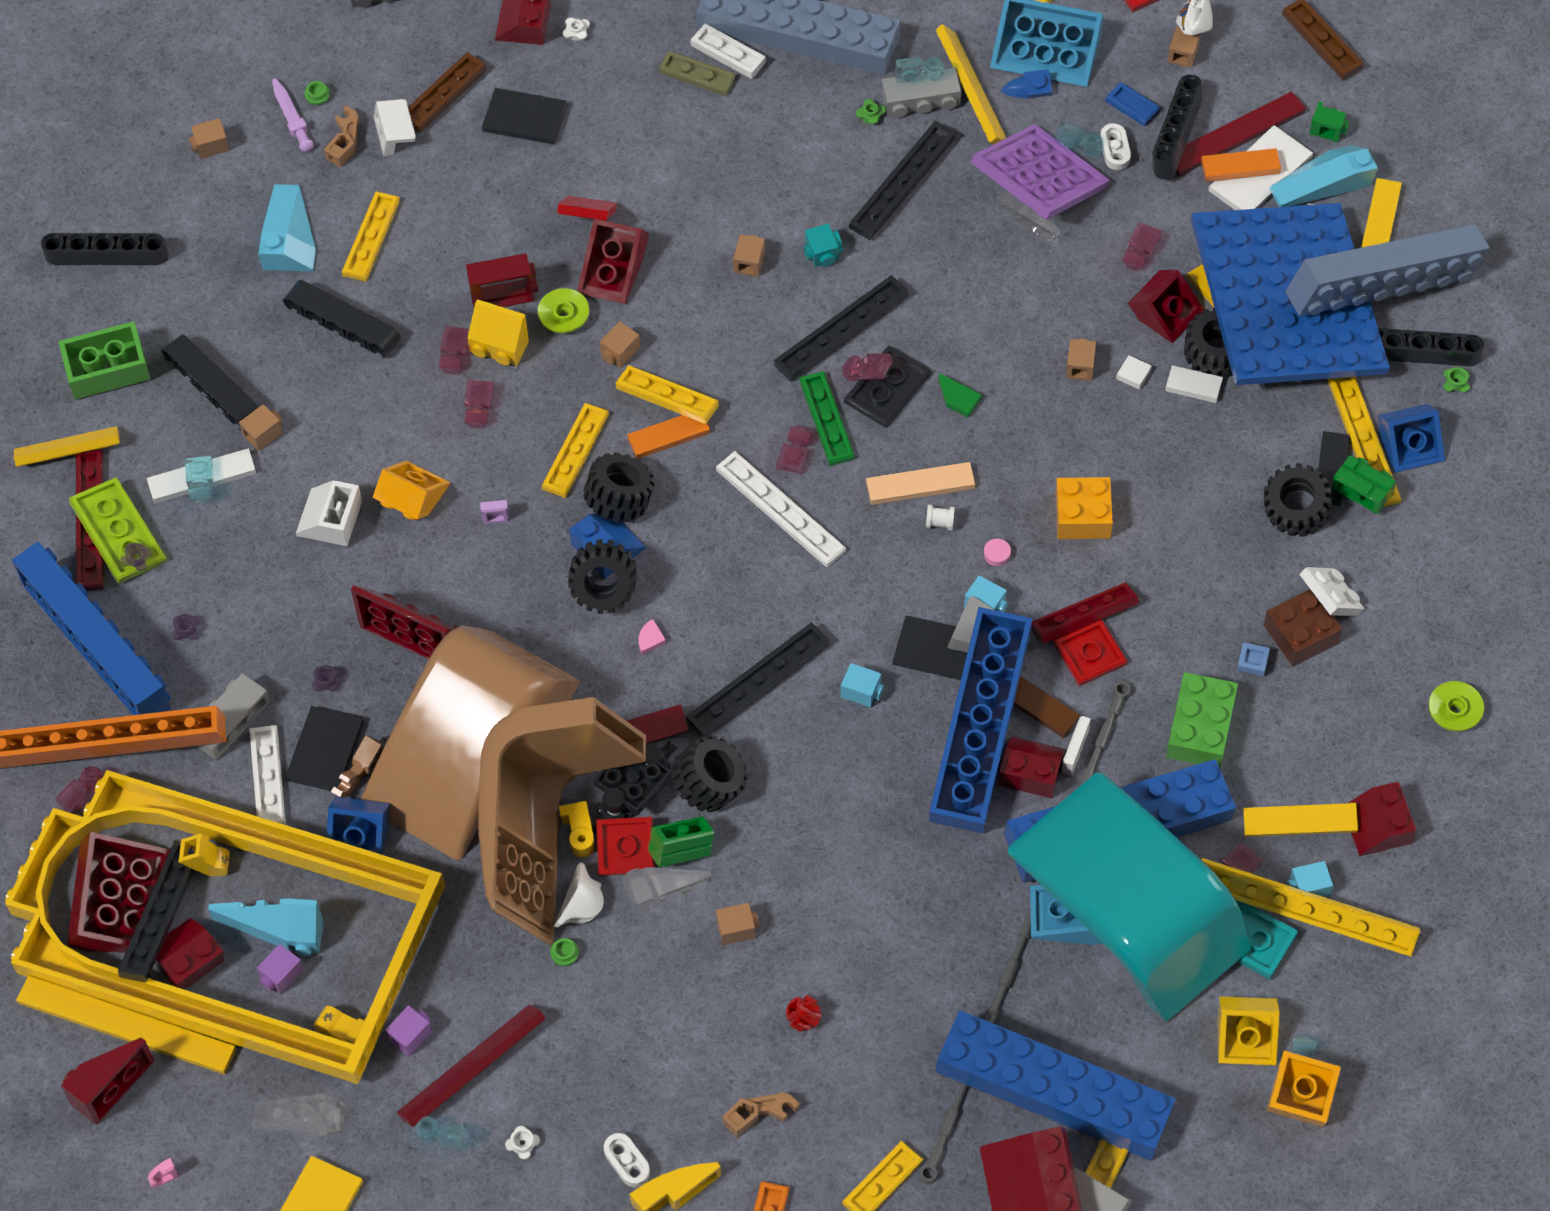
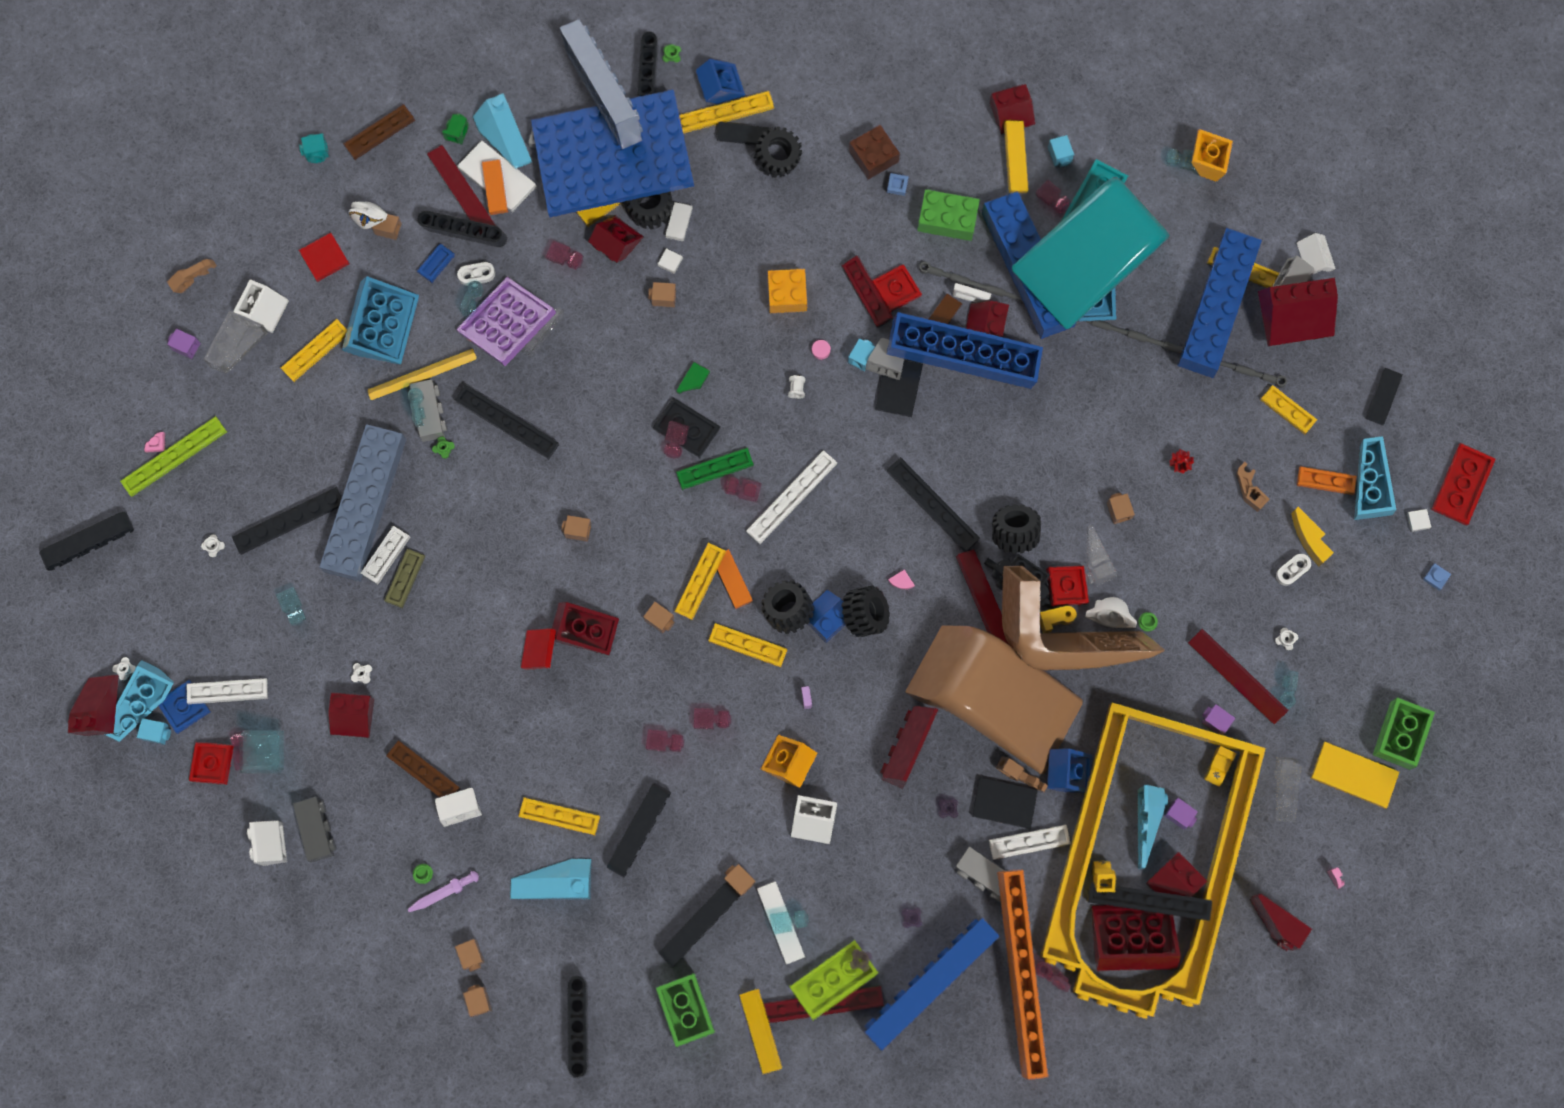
camera: 95 degrees left, 15 degrees up
(126, 1024) = (1230, 921): yellow tile -> none
(152, 146) = (477, 1000): none -> medium nougat brick
(349, 128) = (458, 843): medium nougat piece -> none
(497, 333) = (656, 707): yellow slope -> none
(503, 270) = (610, 706): dark red window -> none
(524, 116) = (445, 707): black tile -> none
(560, 302) = (627, 652): lime dish -> none
(681, 841) = (1067, 545): green brick -> none
(822, 245) = (568, 476): teal brick -> none
(841, 328) = (639, 460): black plate -> none
(861, 685) = (934, 434): medium azure brick -> none
(920, 483) = (767, 402): light nougat tile -> none
(1030, 85) = (419, 334): blue plate -> none
(1248, 1030) = (1165, 189): yellow slope -> none
(1317, 910) = (1082, 151): yellow tile -> none
(1332, 591) = (848, 132): white plate -> none
(1364, 484) = (763, 110): green brick -> none
(1381, 212) = (540, 98): yellow tile -> none
(1456, 695) = (929, 54): lime dish -> none

